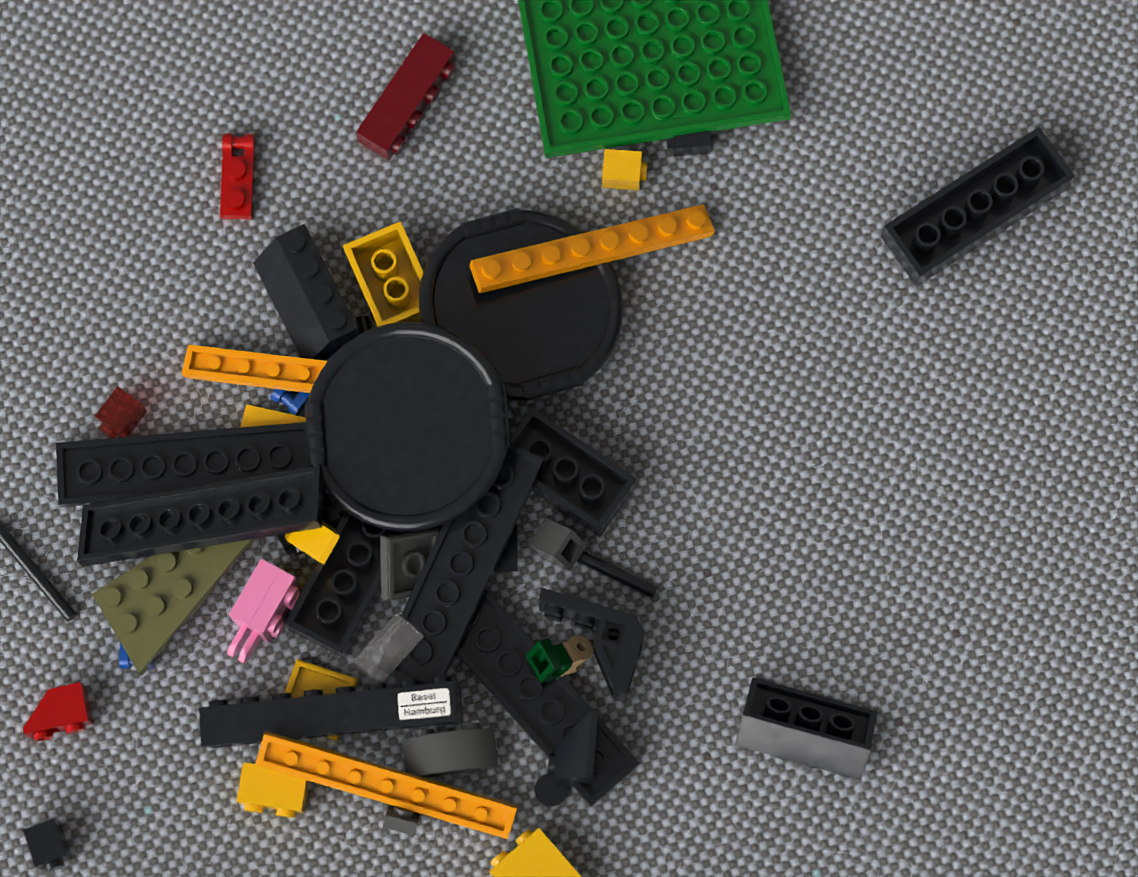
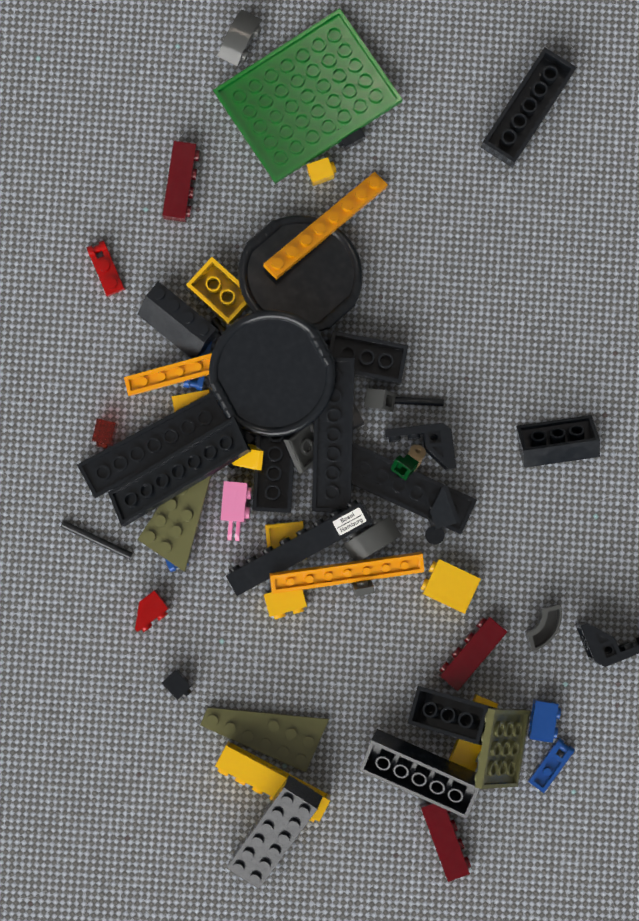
camera: 25 degrees left, 10 degrees up
(388, 648) = (315, 498): clear slope -> none

